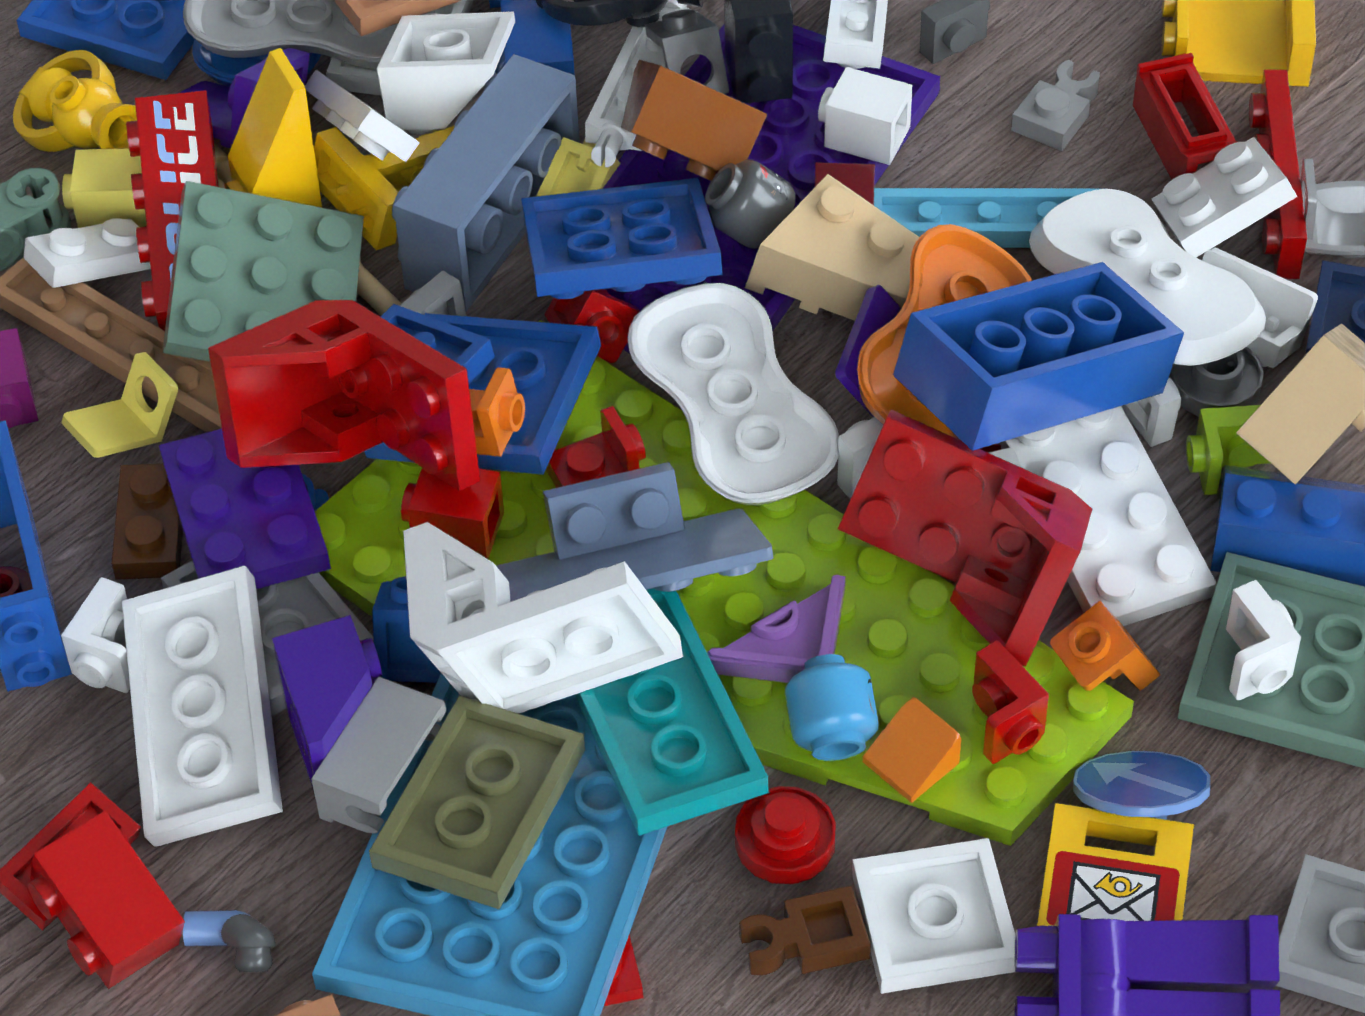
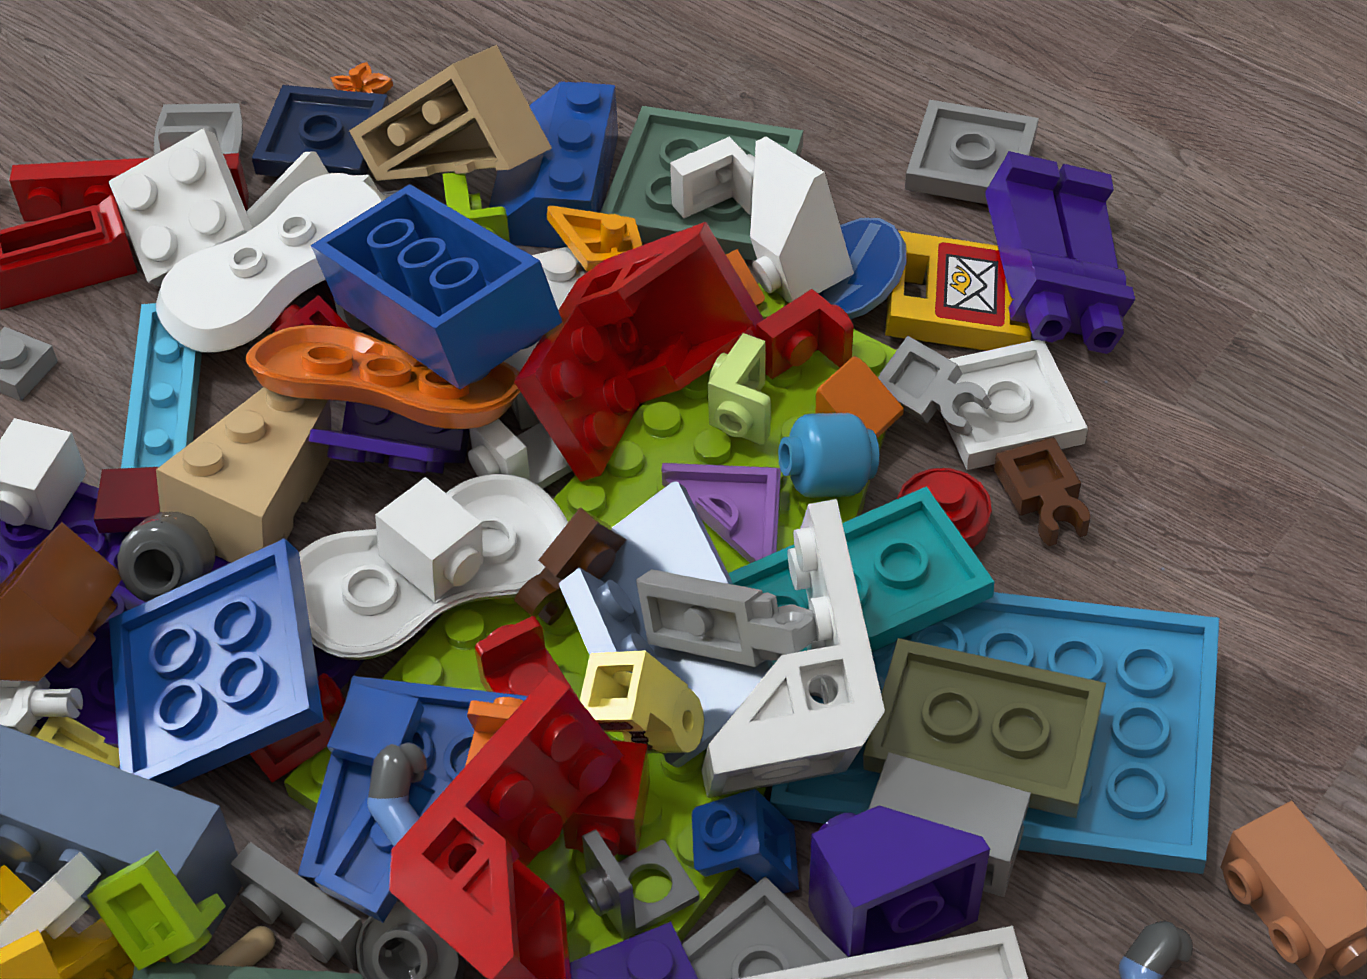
camera: 95 degrees left, 0 degrees up
(362, 514) = (611, 893): none -> flat silver bracket
(373, 193) = (153, 912): none -> lime bracket
(453, 326) = (390, 786): none -> dark grey arm
(510, 503) = (644, 705): none -> light yellow leg
(533, 338) = (373, 721): none -> blue tile
(601, 540) = (721, 619): none -> light grey hinge
(709, 486) = (582, 544): none -> reddish brown plate
(732, 370) = (430, 539): none -> white brick
(932, 635) = (735, 392): none -> yellowish green bracket
(936, 814) = (927, 382): none -> light grey plate
(1170, 537) = (594, 234): none -> light orange piece
(1172, 705) = (794, 225): none -> white slope

